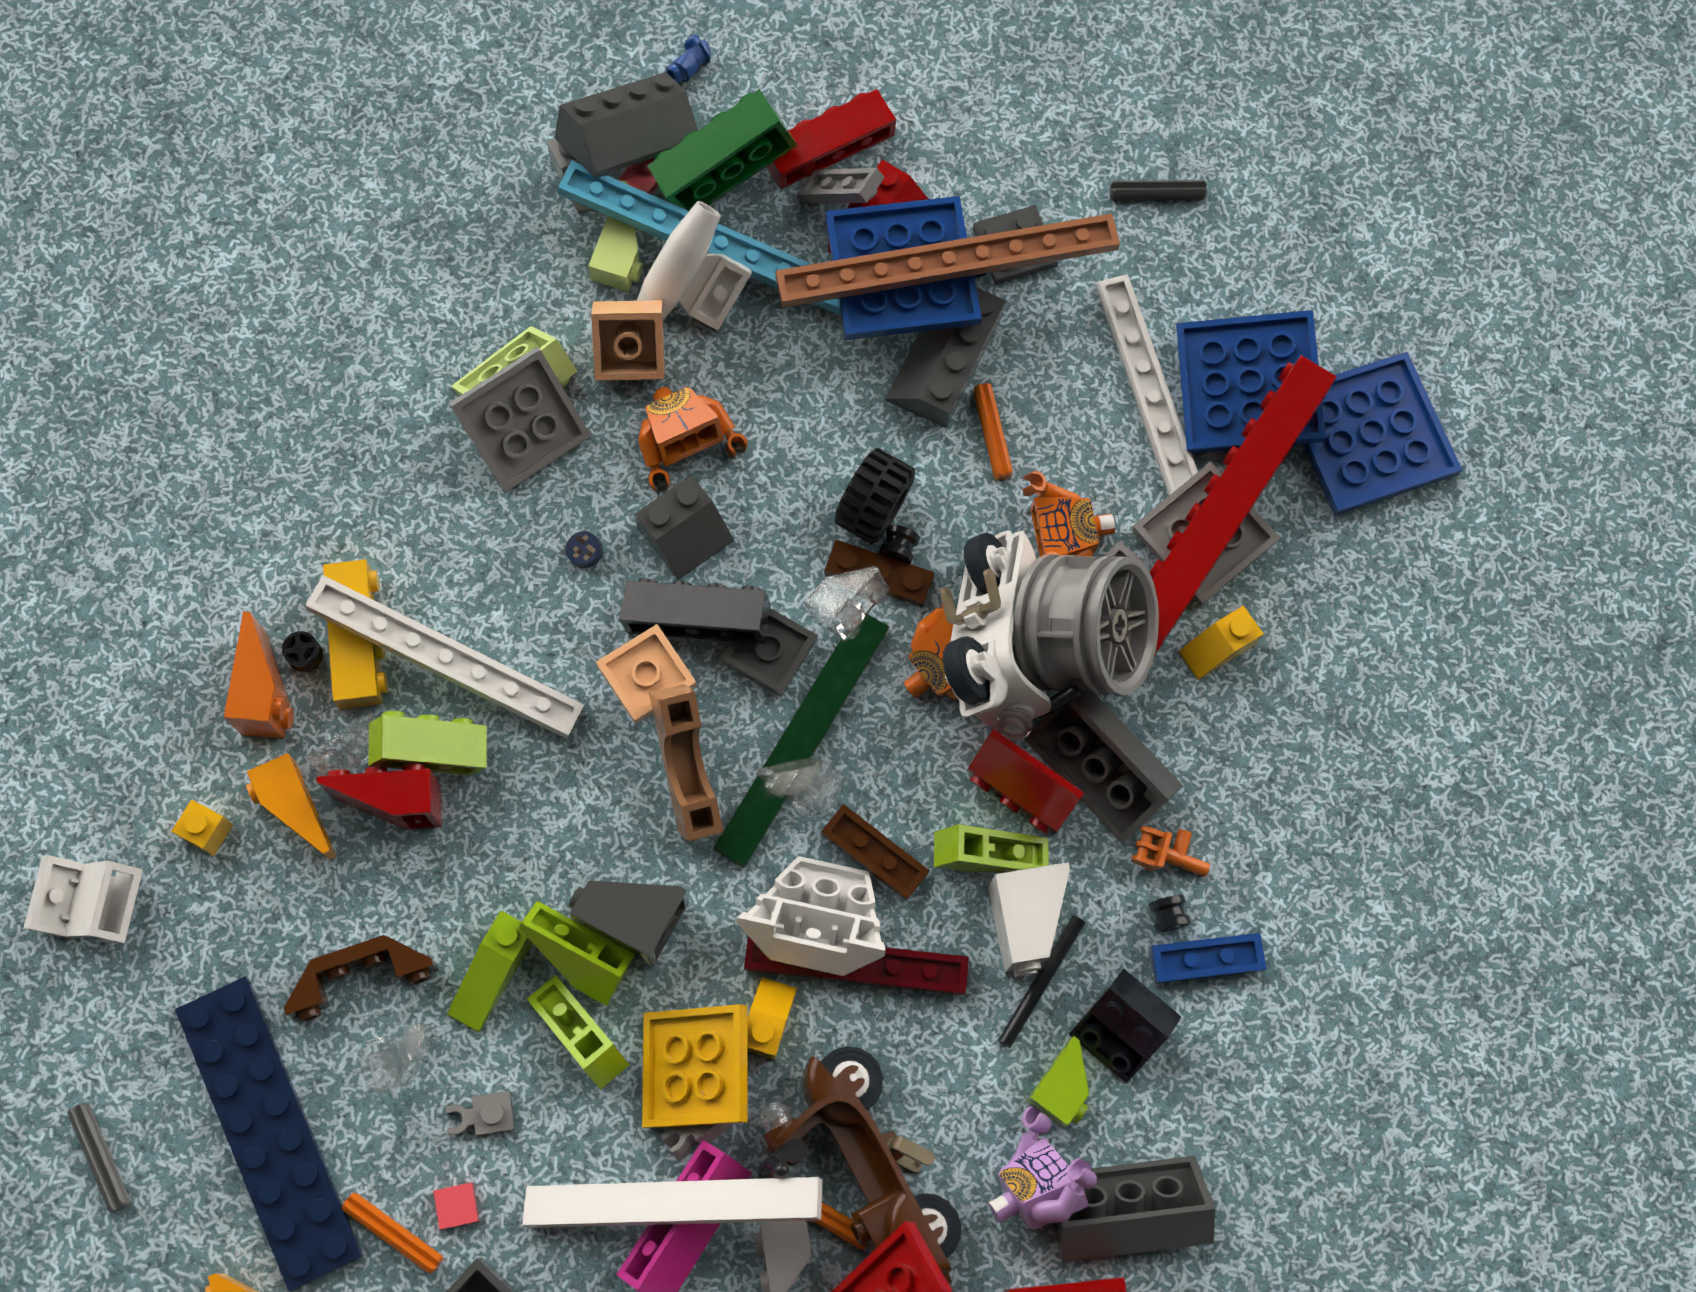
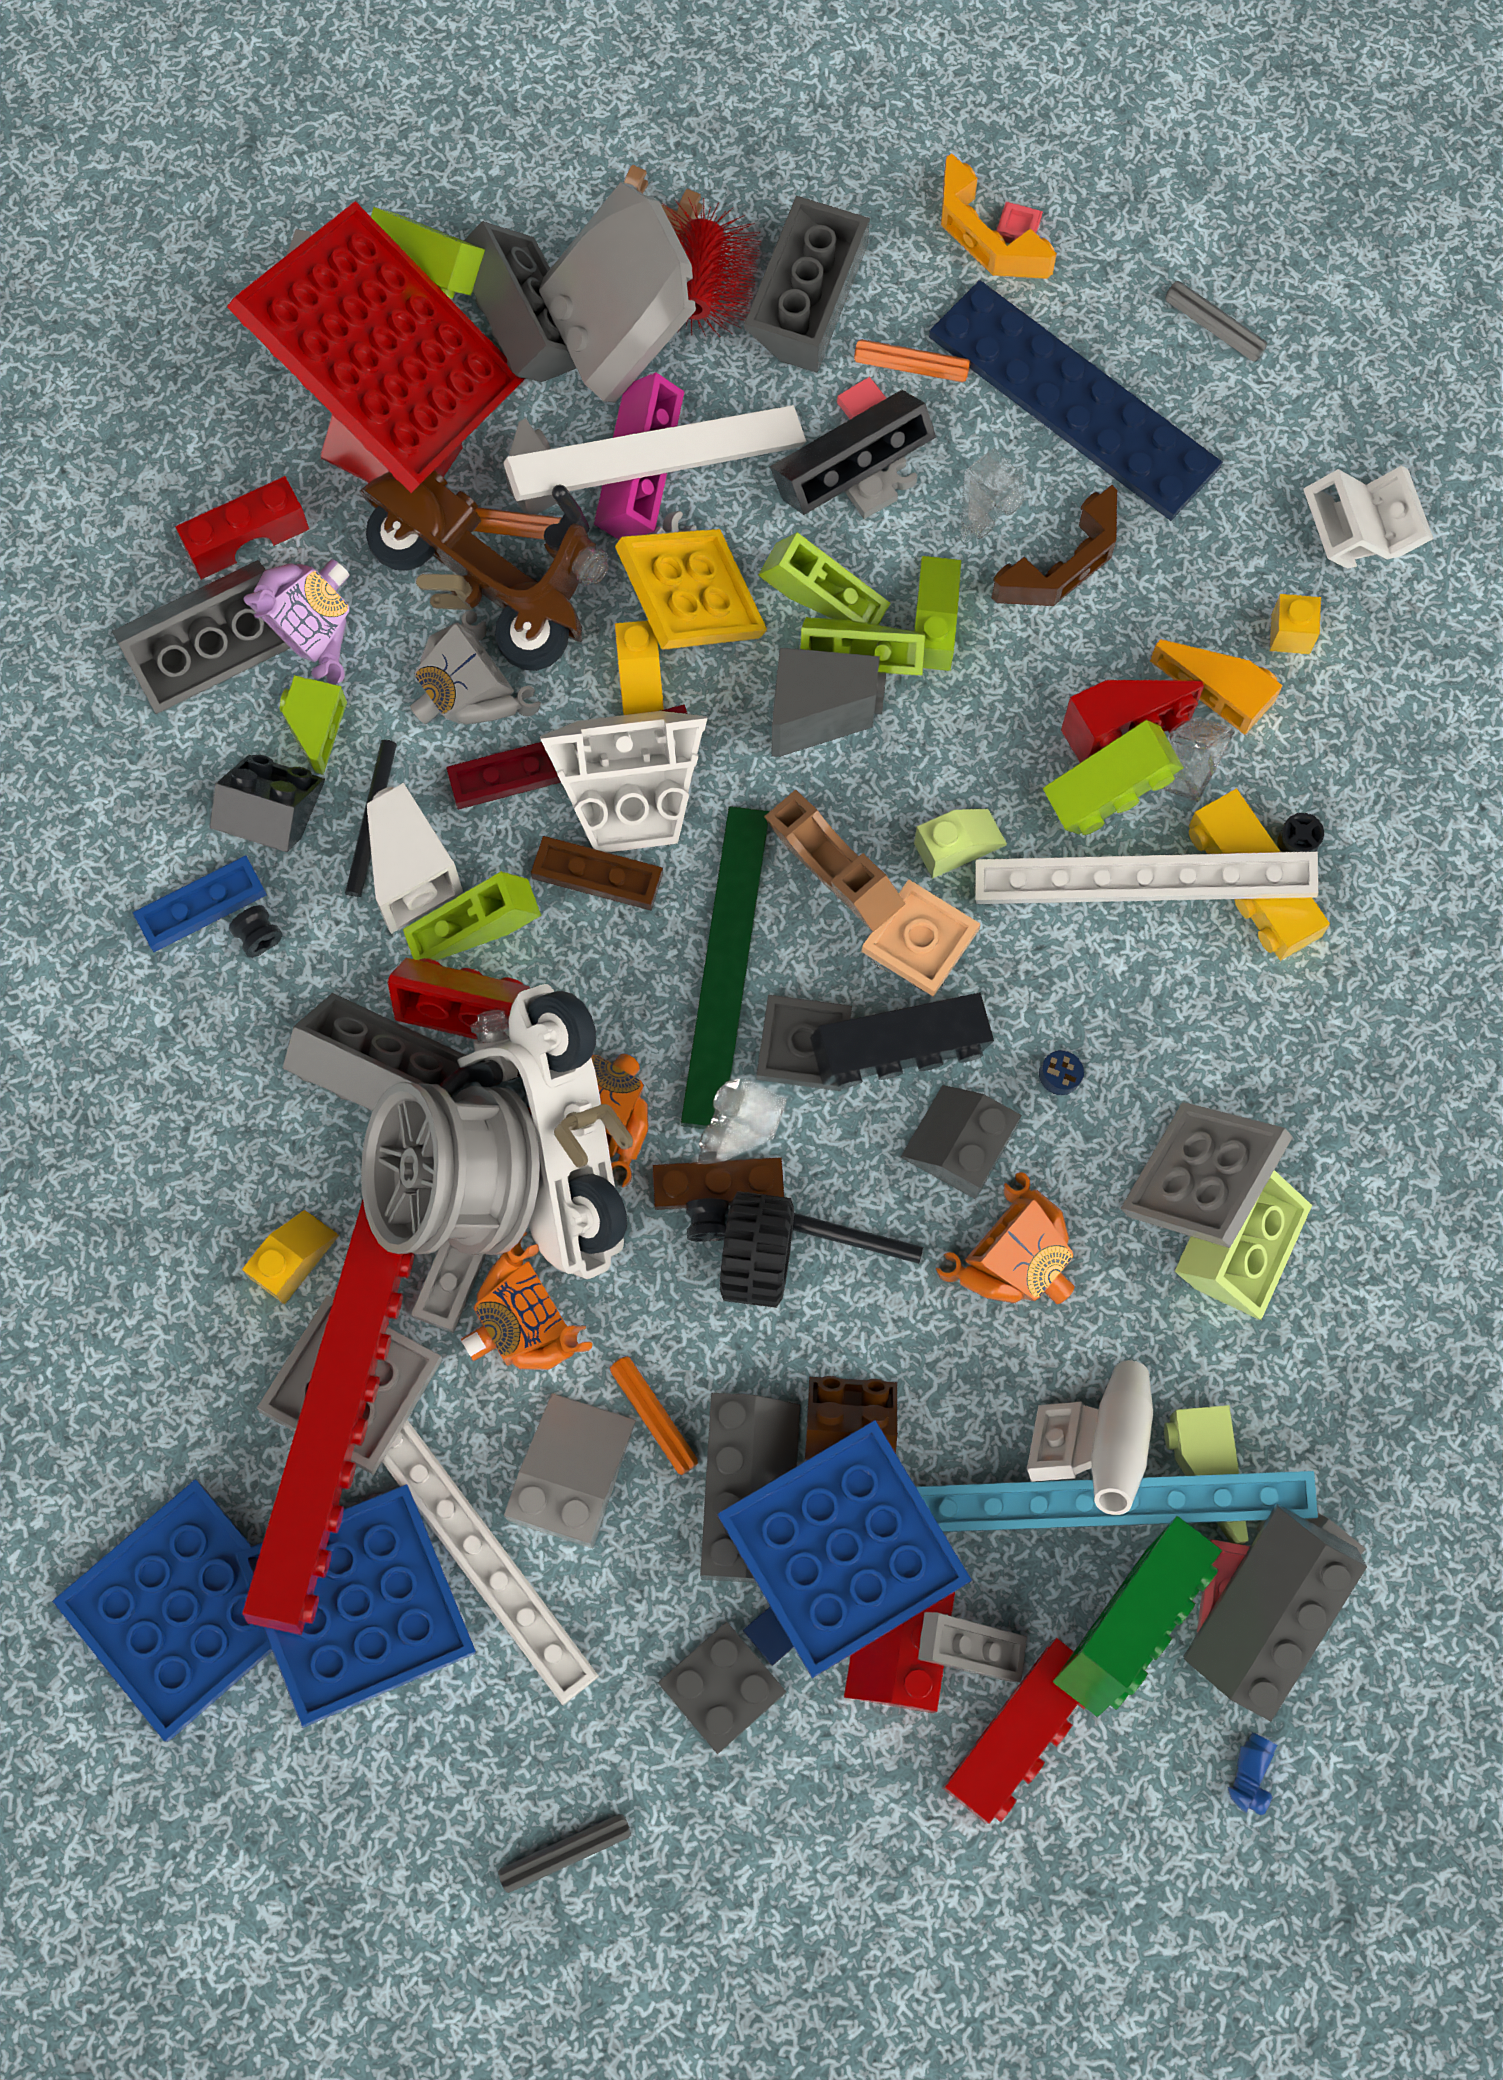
camera: 165 degrees right, 0 degrees up
(256, 692) = (1322, 774): orange slope -> none
(491, 1149) = (853, 451): none -> black brick
(572, 759) = (957, 839): none -> yellowish green slope
(628, 340) = (1133, 1325): light nougat brick -> none
(802, 501) = (857, 1238): none -> black bar
(806, 782) = (702, 905): clear slope -> none
(856, 368) = (846, 1405): none -> reddish brown slope
(922, 1067) = (464, 679): none -> light grey torso
(946, 260) = (785, 1567): nougat plate -> none
(1068, 413) = (570, 1471): none -> light grey slope
(1161, 852) = (292, 993): orange arm -> none

